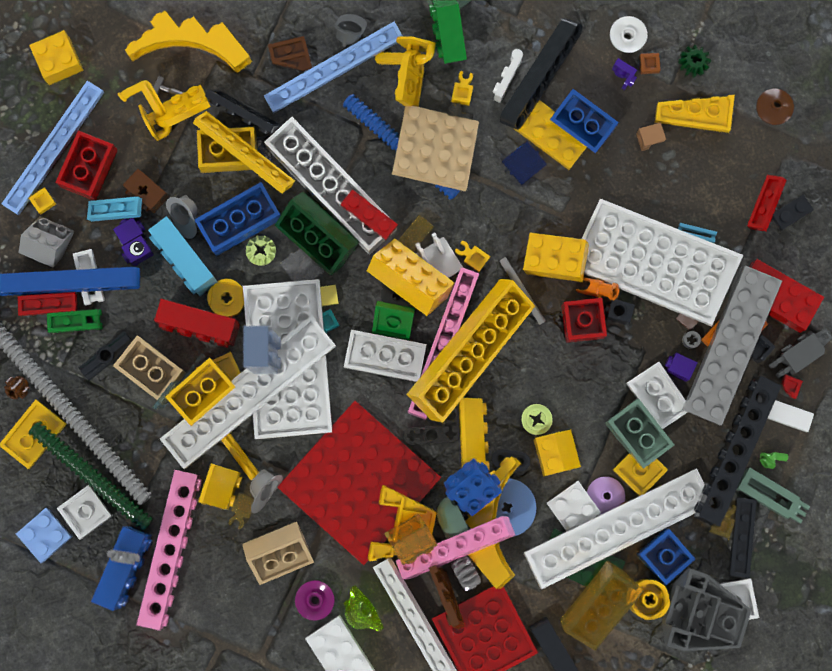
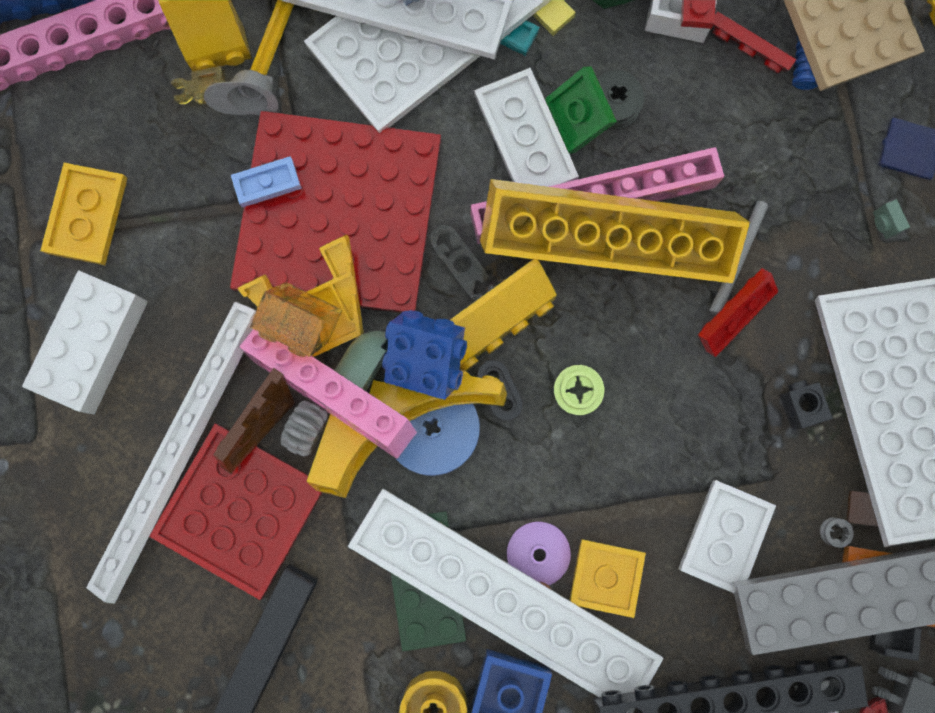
camera: 60 degrees right, 0 degrees up
(270, 618) = (84, 214): none -> yellow plate
(277, 553) = (173, 166): tan slope -> none
(304, 602) = (132, 244): magenta dish -> none
(322, 509) = (266, 181): none -> light blue plate
(361, 612) = (166, 325): clear neon green hat -> none
(410, 277) = (654, 90): yellow brick -> none
(415, 206) = (752, 44): none -> red plate
(416, 233) = (712, 69): clear yellow plate -> none
(440, 256) = (698, 119): white plate -> none
(474, 258) = (739, 165): yellow plate -> none
(550, 312) = (738, 312): none -> red plate
(554, 202) = (890, 219): none -> sand green plate
(556, 257) = (820, 268): yellow brick -> none
(557, 452) = (553, 447): yellow slope -> none
(573, 506) = (493, 518): white plate -> none
(584, 320) = (760, 363): red brick -> none
(599, 288) = (819, 356): orange piece -> none
(601, 606) = (379, 647): clear yellow slope -> none
(639, 433) = (658, 543): sand green slope -> none
(680, 366) = (789, 541): dark purple brick -> none

